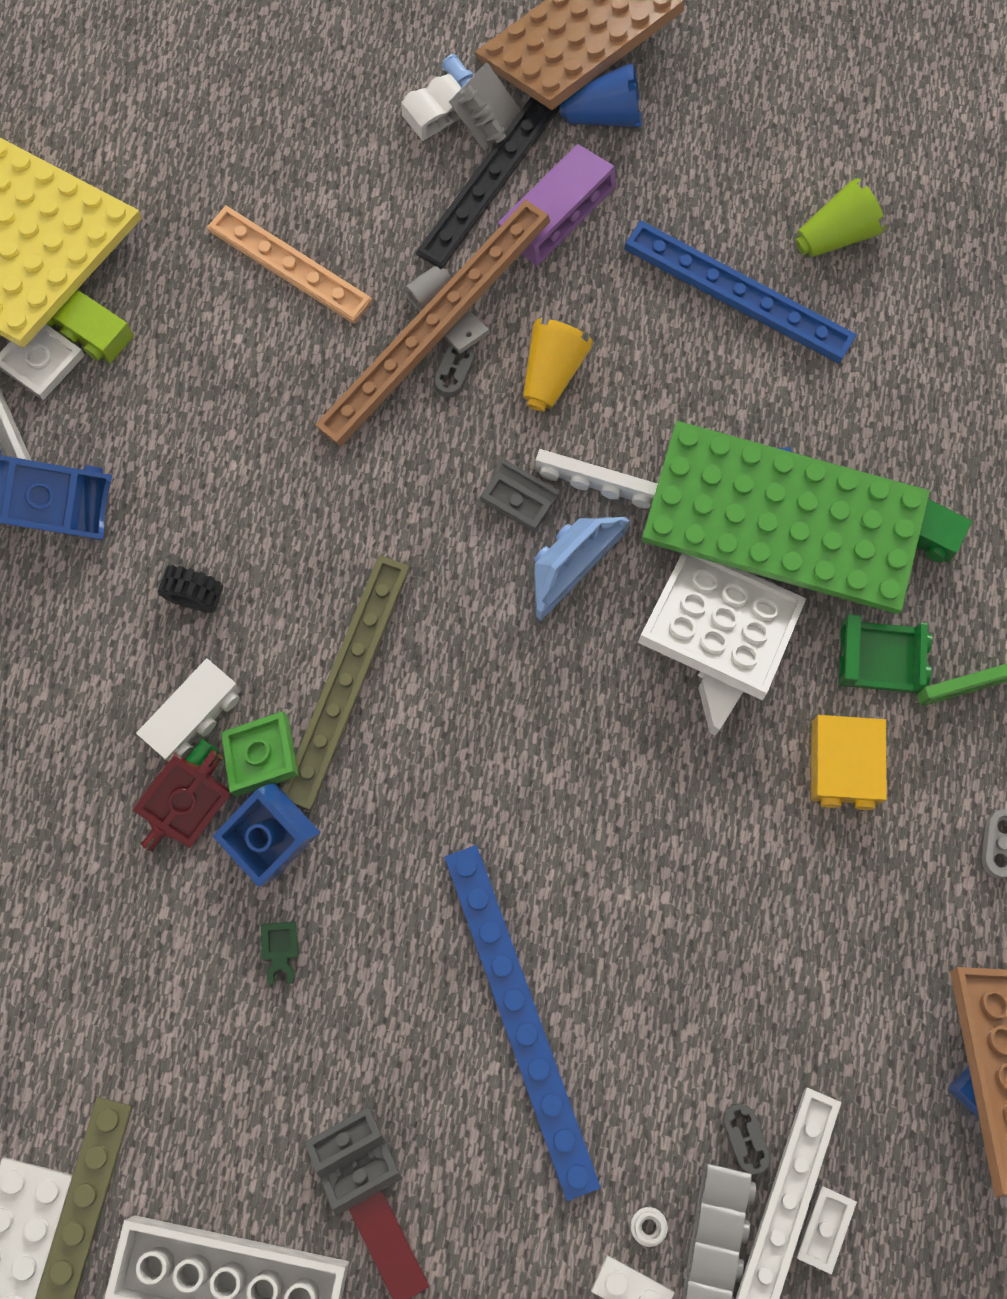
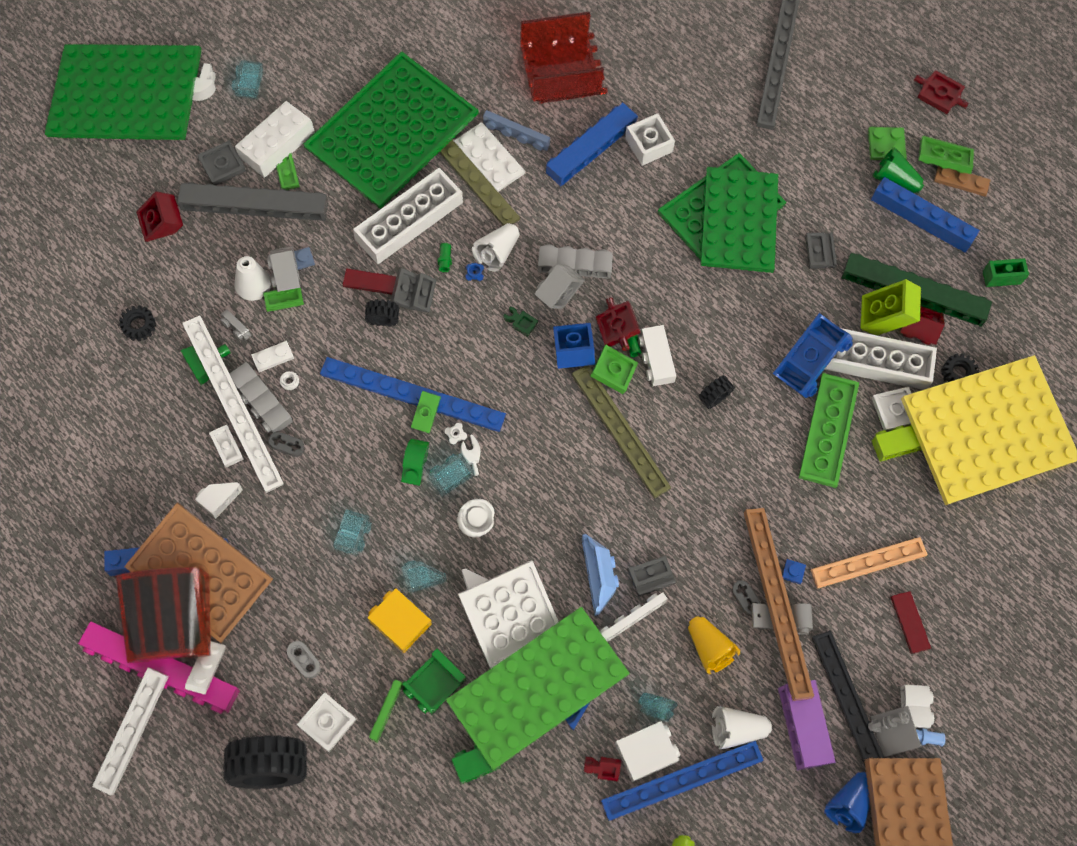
camera: 125 degrees right, 5 degrees down
(118, 947) = (582, 261): none -> light grey brick
(136, 418) = (829, 430): none -> bright green plate
(179, 924) = (559, 286): none -> light grey brick
(179, 1087) = (496, 246): none -> white cone
(237, 1091) = (474, 267): none -> blue plate
(263, 1155) = (444, 260): none -> green pin
(331, 174) = (910, 622): none -> dark red tile
(372, 339) = (793, 571): none -> blue plate
(433, 1172) = (382, 313): none -> black tyre
(534, 912) = (453, 439): none -> white plate
(534, 970) = (426, 412): none -> bright green plate
(545, 853) = (472, 456): none -> white hand
(597, 859) = (450, 474): none -> clear light blue brick
(619, 923) = (414, 461): none -> green brick
(629, 268) = (738, 727): none -> white cone
(634, 768) = (476, 517): none -> white piece
(681, 369) = (657, 706): none -> clear light blue hips
(741, 348) = (647, 751): none -> white brick
(768, 780) = (421, 576): none -> clear light blue slope
(791, 924) = (351, 533): none -> clear light blue brick
(800, 380) = (606, 769): none -> dark red plate
(910, 1167) = (217, 497): none -> white slope

